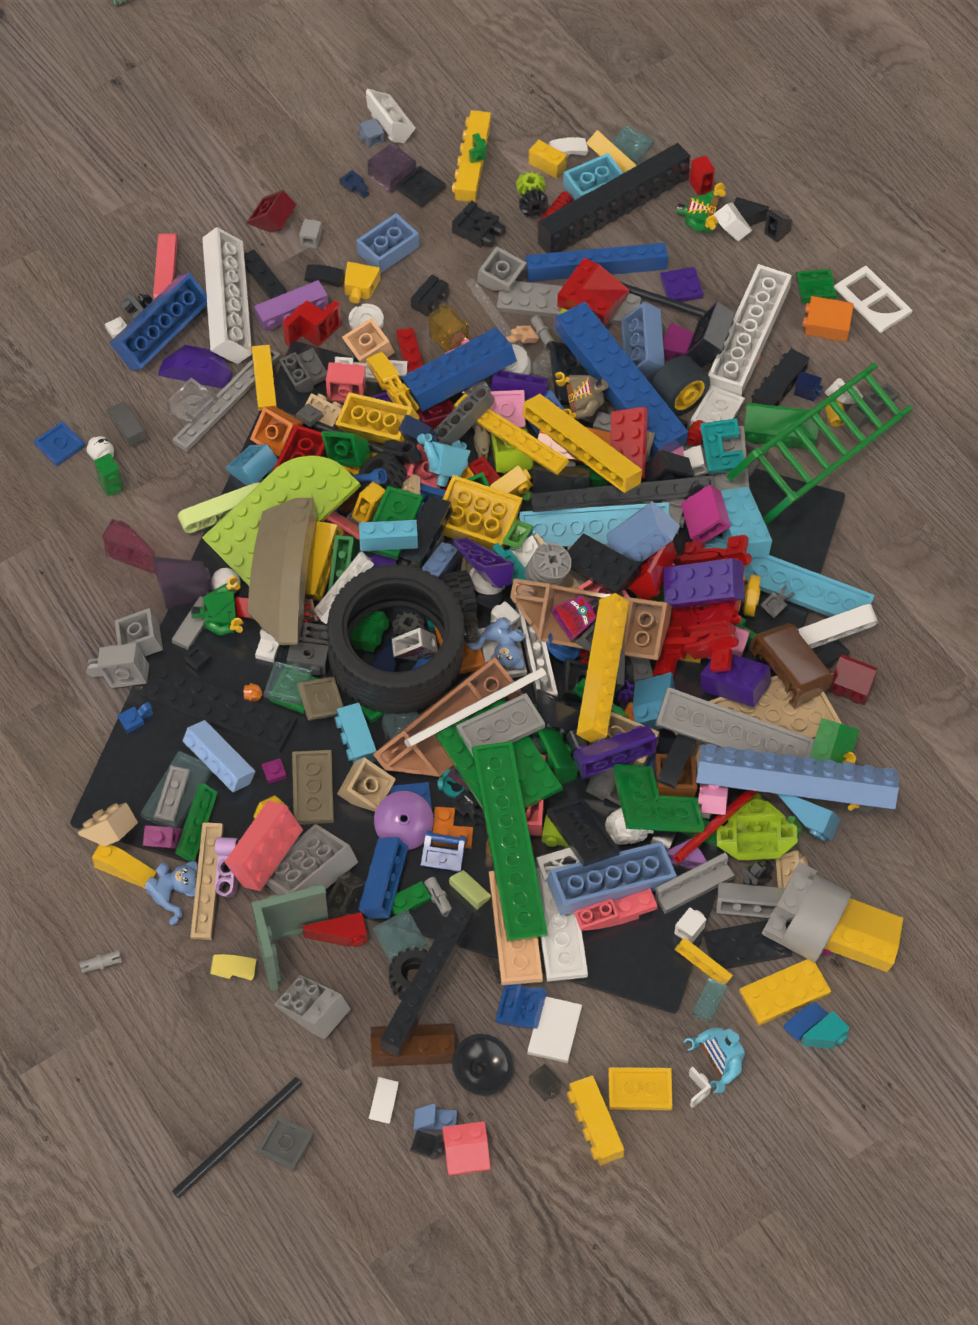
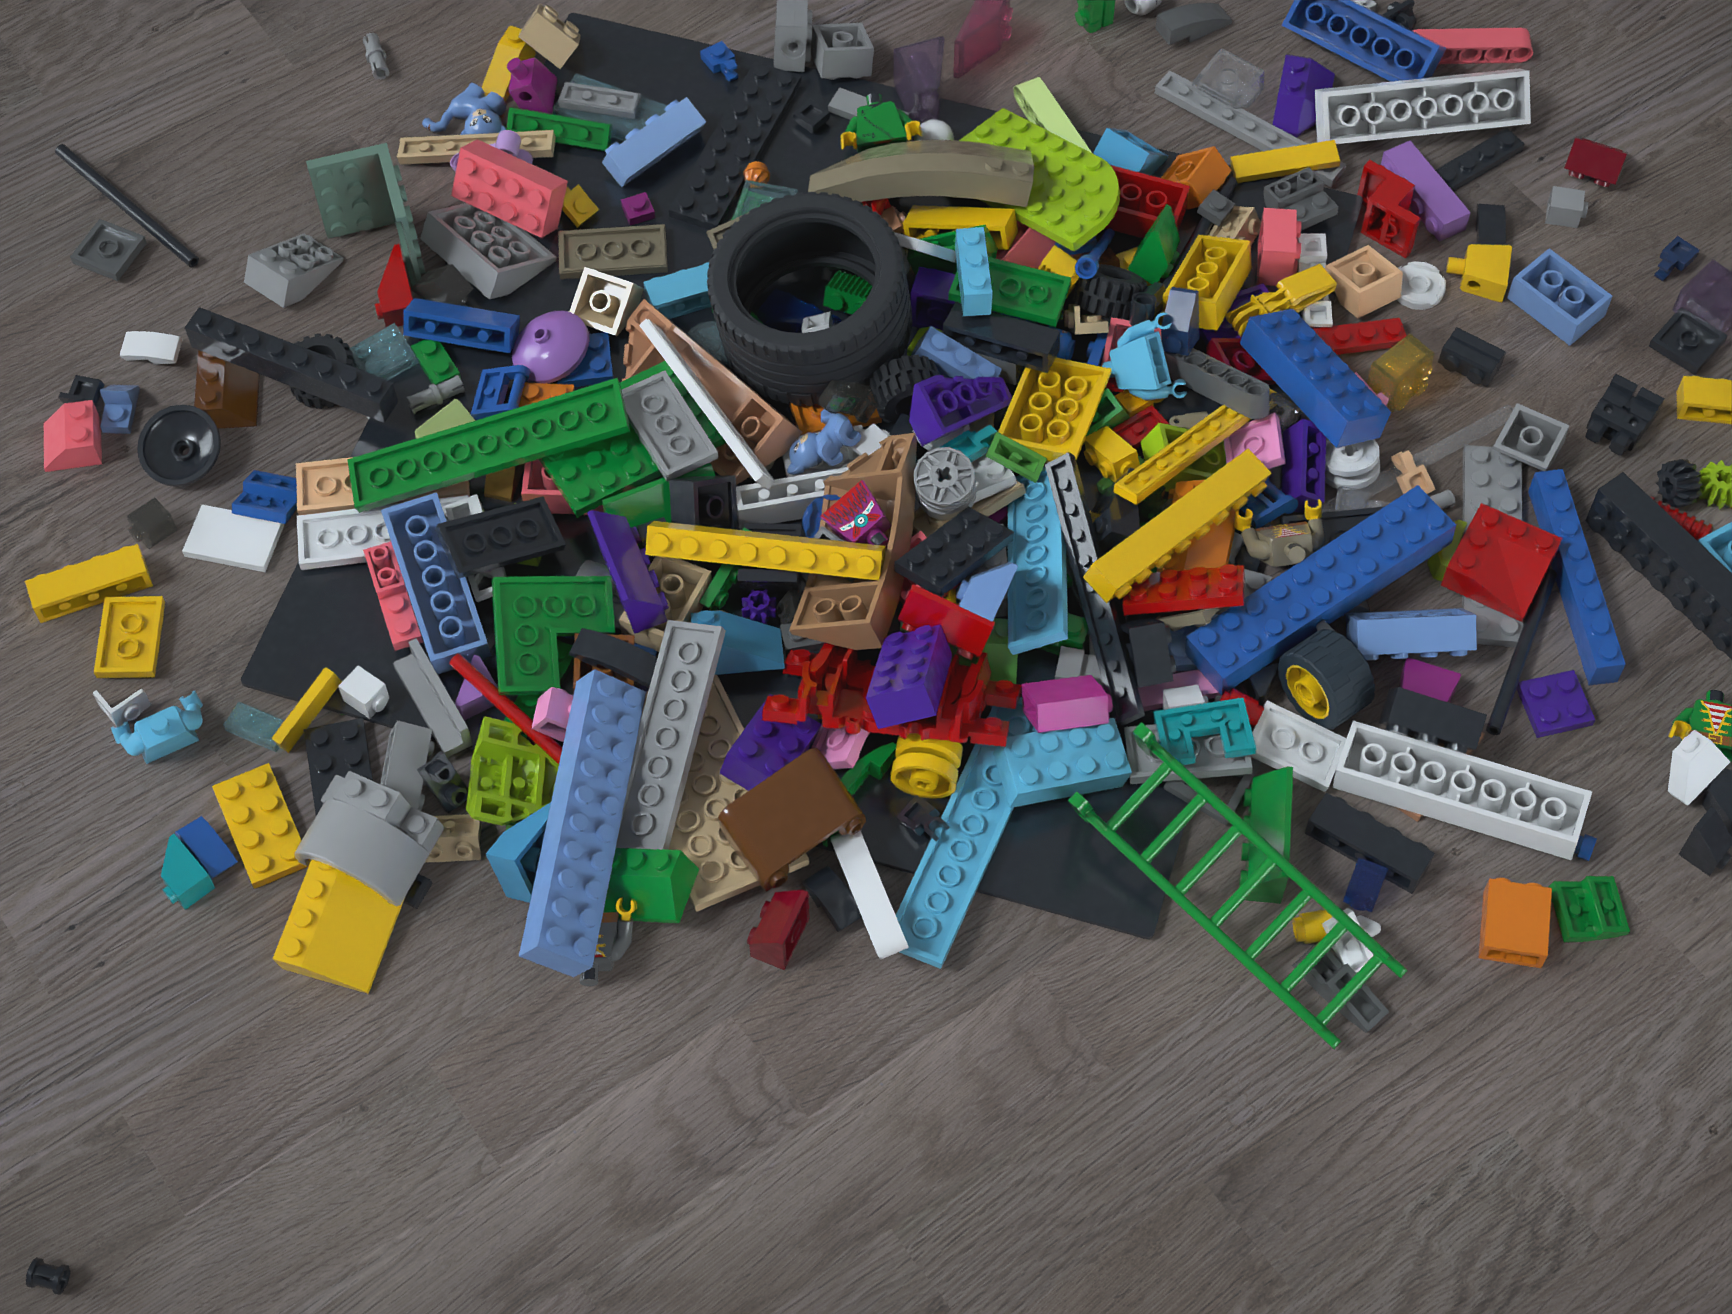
camera: 90 degrees right, 0 degrees up
(879, 321) = (1530, 1010): white window -> none

